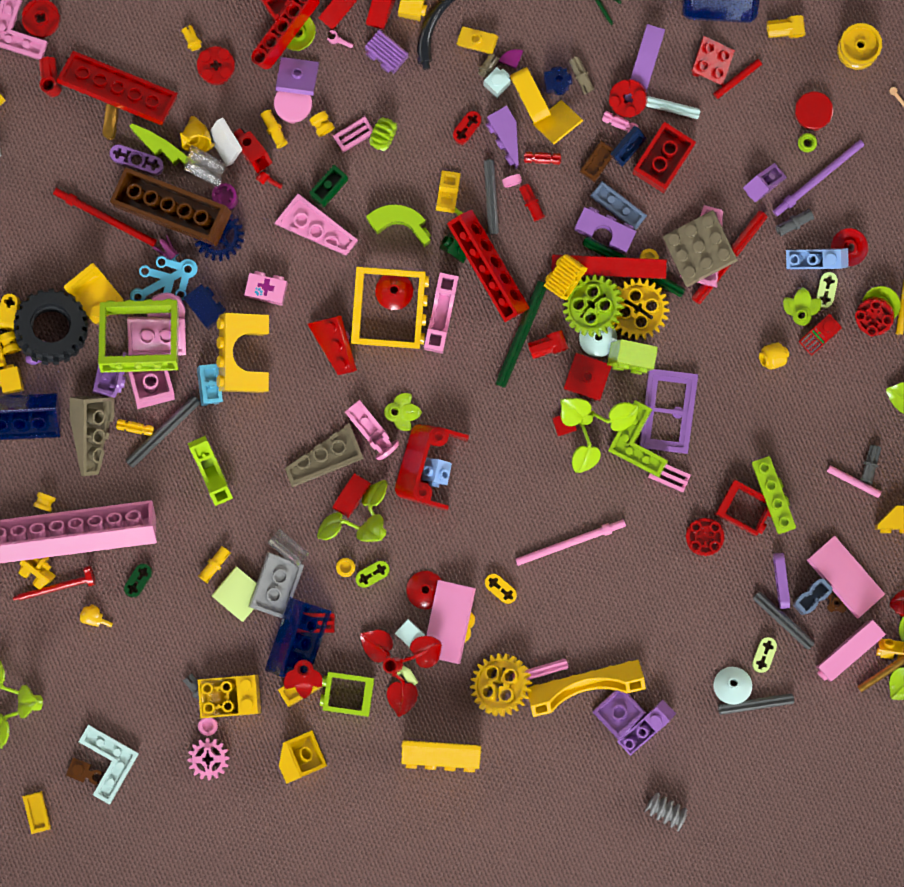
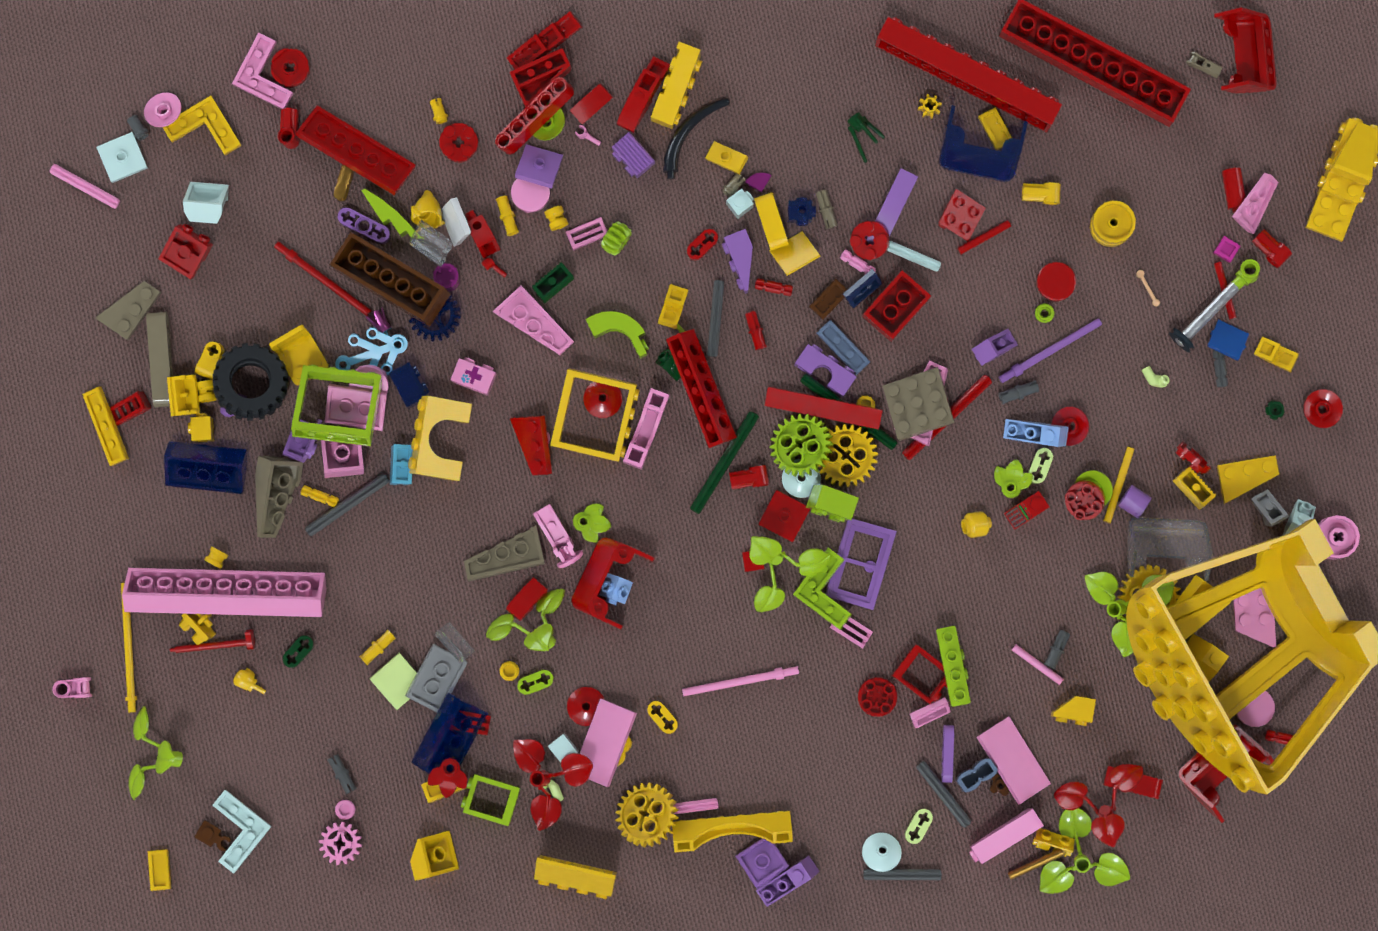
camera: 10 degrees right, 0 degrees up
(210, 470) = (388, 552): lime arch -> none
(229, 696) = (371, 783): yellow slope -> none
(512, 180) = (739, 305): bright pink tile -> none
(565, 276) = (777, 411): yellow brick -> none
(758, 544) = (930, 713): none -> bright pink tile

